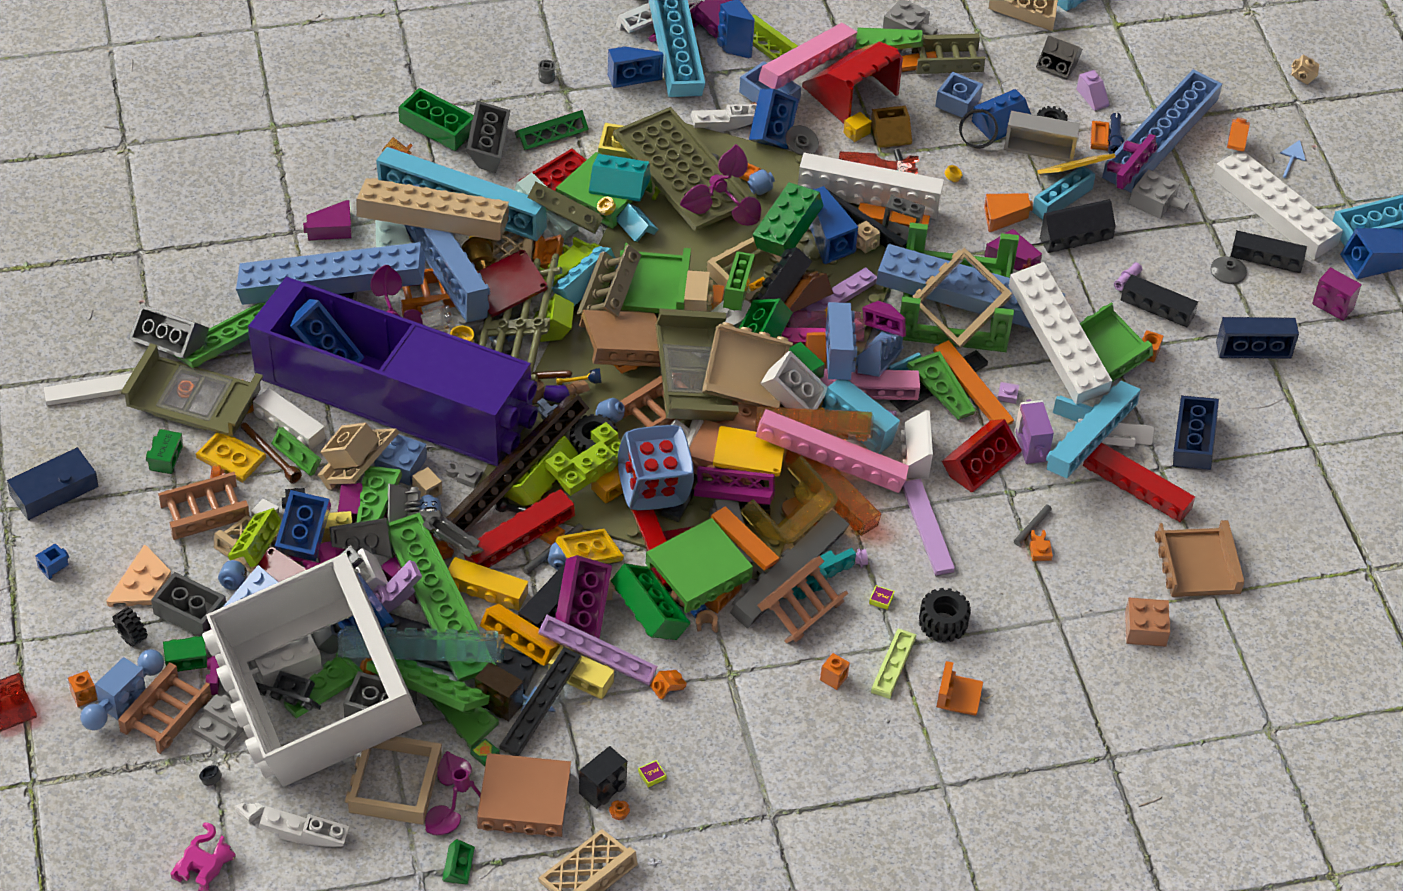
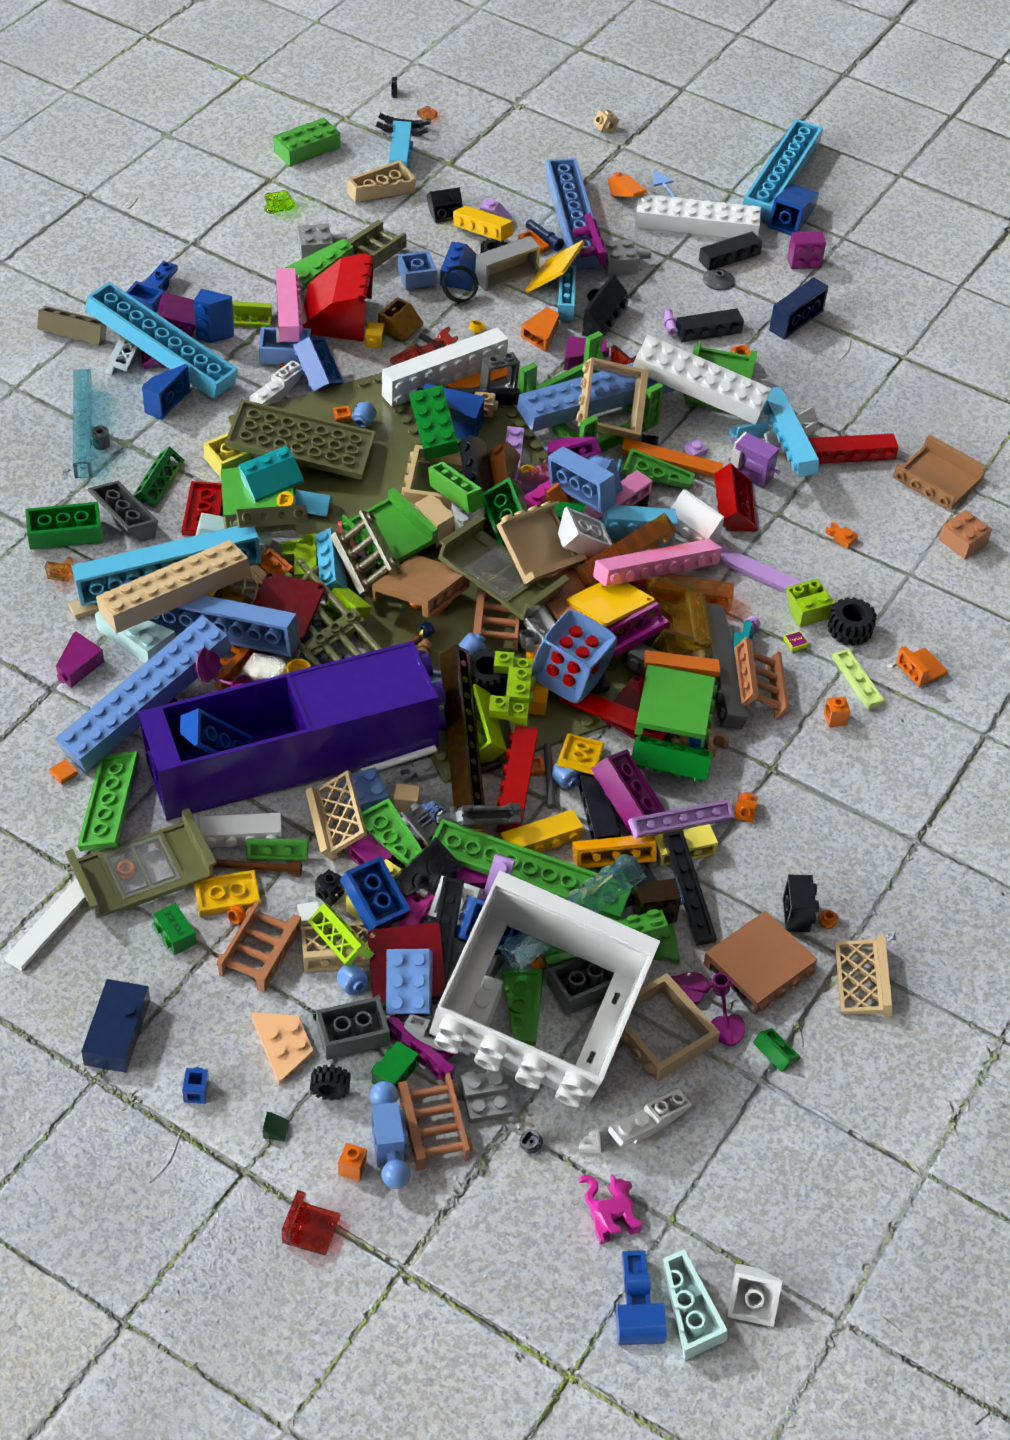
camera: 45 degrees left, 0 degrees up
(67, 627) = (275, 1127): none -> dark green slope
(168, 332) = (57, 834): dark grey slope -> none
(228, 294) = (63, 771): none -> orange tile
(292, 689) = (520, 1022): black bracket -> none
(350, 446) = (331, 808): tan brick -> none
(459, 455) = (402, 759): none -> white bar
(480, 751) = (692, 955): tile -> none
(551, 48) = (82, 423): none -> clear light blue brick
(652, 773) = (818, 875): tile -> none
(730, 164) = (348, 450): magenta plant -> none
(802, 140) = (350, 368): dark grey dish -> none
(928, 572) = (809, 602): none -> lime slope
(1032, 525) = (818, 519): dark grey bar -> none
(1066, 90) = (483, 223): none -> yellow brick
(1195, 432) = (839, 393): dark blue brick -> none

